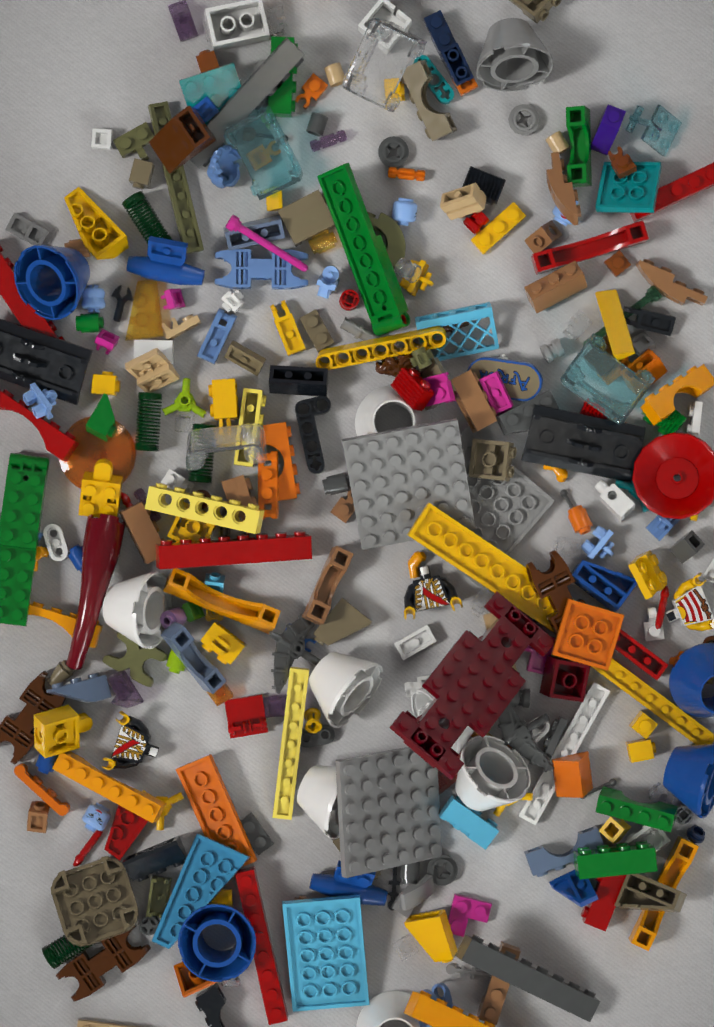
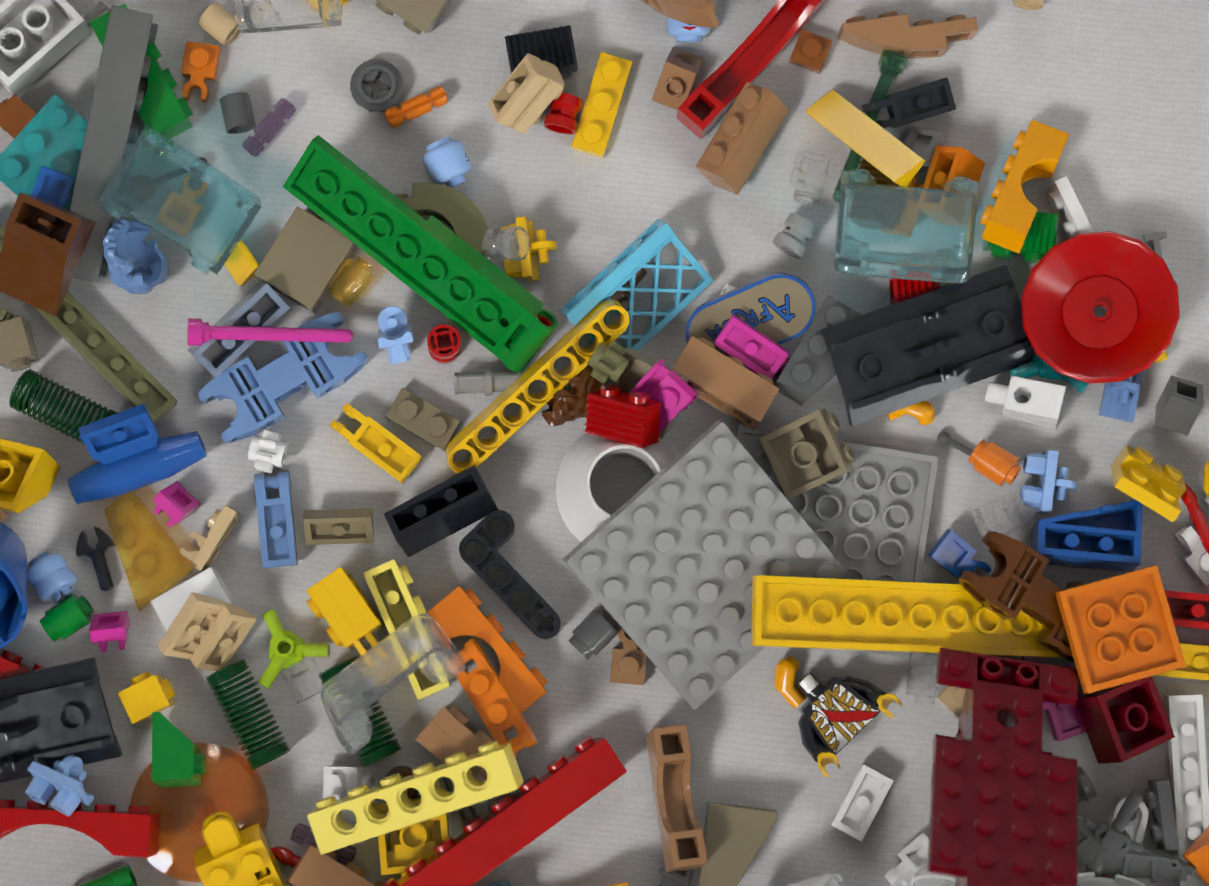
camera: 35 degrees left, 5 degrees down
(533, 552) = (955, 554): none -> blue plate

